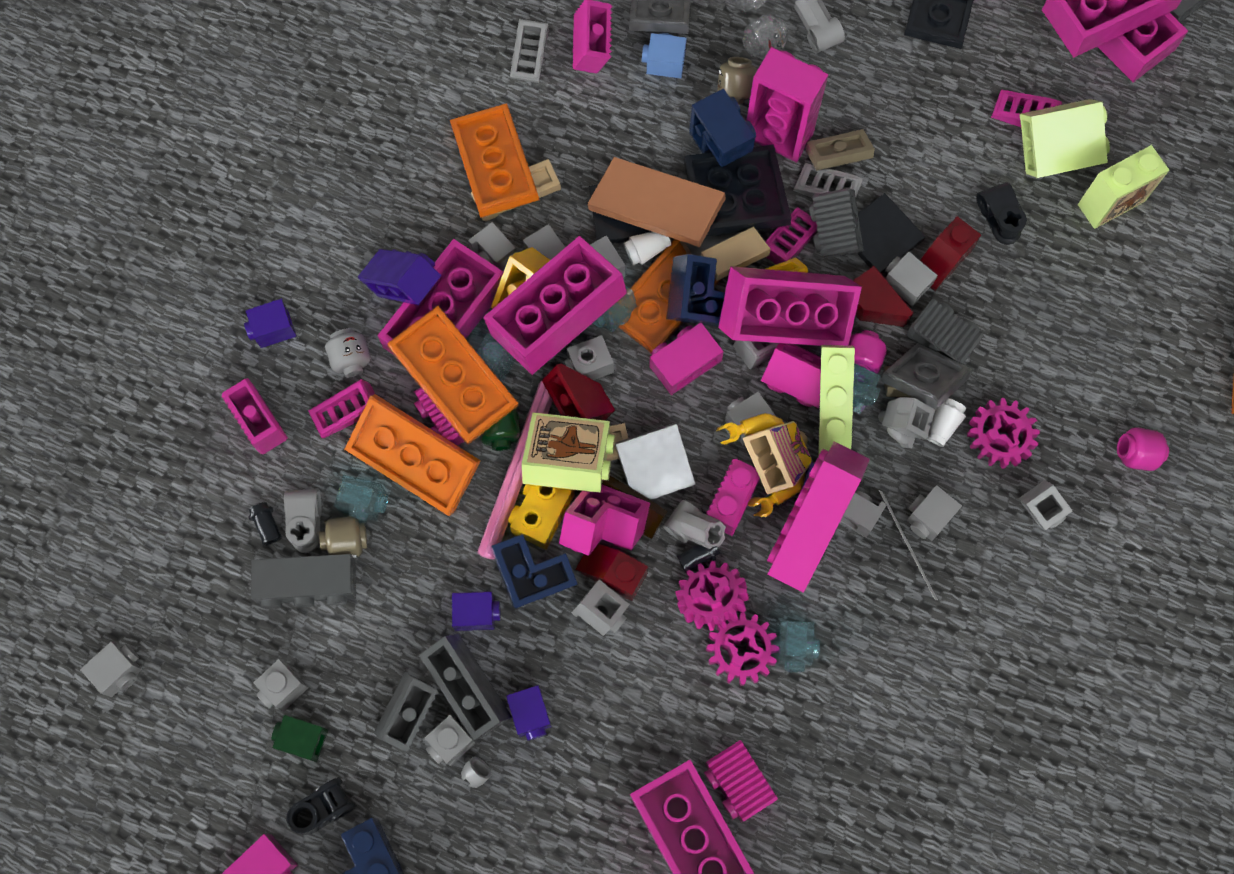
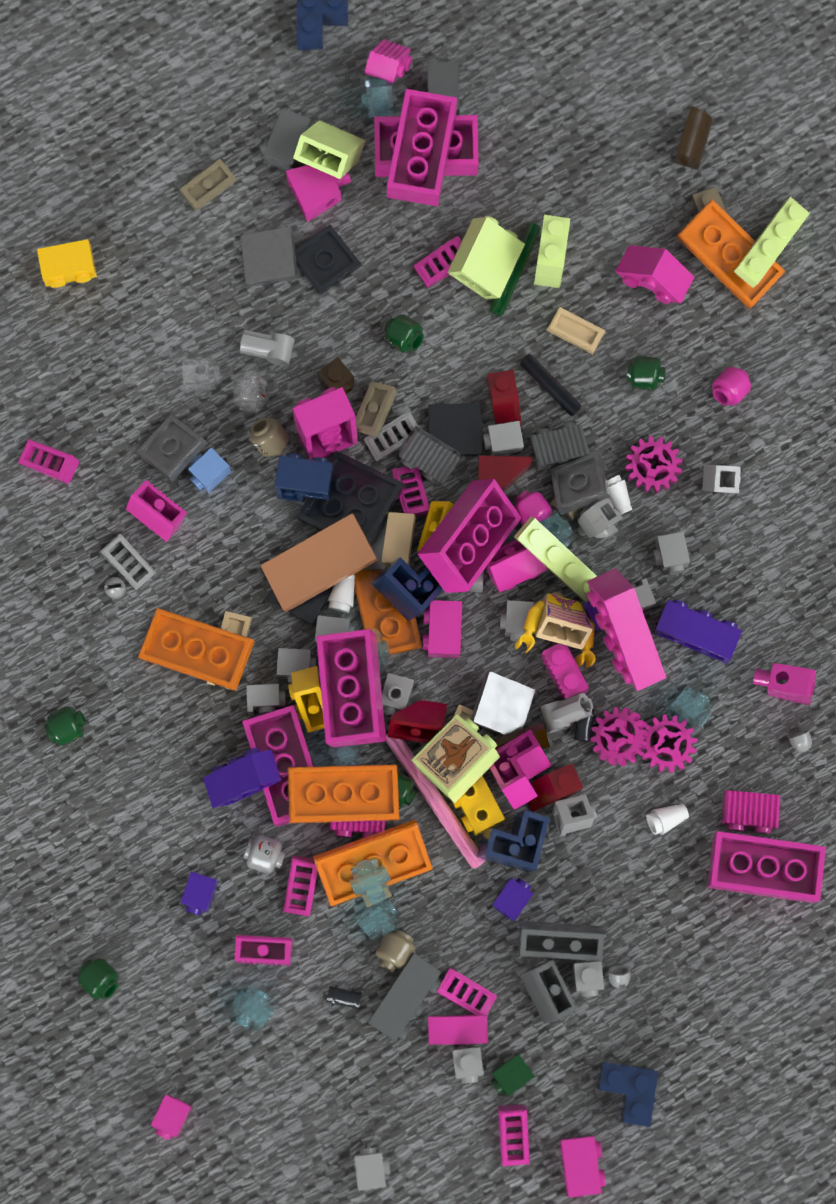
camera: 55 degrees left, 5 degrees up
(41, 449) = (171, 1117): none -> dark pink brick
(127, 295) = (98, 979): none -> dark green head
(194, 449) = (253, 1009): none -> clear light blue brick
(264, 764) = (509, 1111): none -> dark pink slope
(302, 513) = (356, 965): light grey piece -> none
(308, 653) = (458, 1029): none -> dark pink slope
(322, 807) = (569, 1091): black piece -> none
(339, 104) = (65, 725): none -> dark green head
(363, 634) = (491, 997): none -> dark pink slope
(389, 463) = (370, 881): none -> clear light blue brick
(494, 62) = (115, 593): none -> light grey hinge
(529, 713) = (607, 912): dark purple brick -> none
(668, 703) = (666, 818): none -> white cone
(839, 96) = (336, 375): none -> dark brown brick
(851, 782) = (801, 741): none -> light grey hinge
(877, 595) = (698, 631): none -> dark purple brick
(902, 735) = (799, 682): none -> dark pink torso
(908, 545) = (681, 585): white sticker -> none
(931, 124) = (404, 333): none -> dark green head
(997, 286) = (551, 385): none -> black axle
(1002, 212) = (500, 338): black piece -> none
(1061, 180) = (528, 238): none -> dark green axle
(1068, 271) = (576, 330): none -> tan tile
(1084, 360) = (646, 373): none -> dark green head
(1191, 297) = (656, 271): none -> dark pink brick

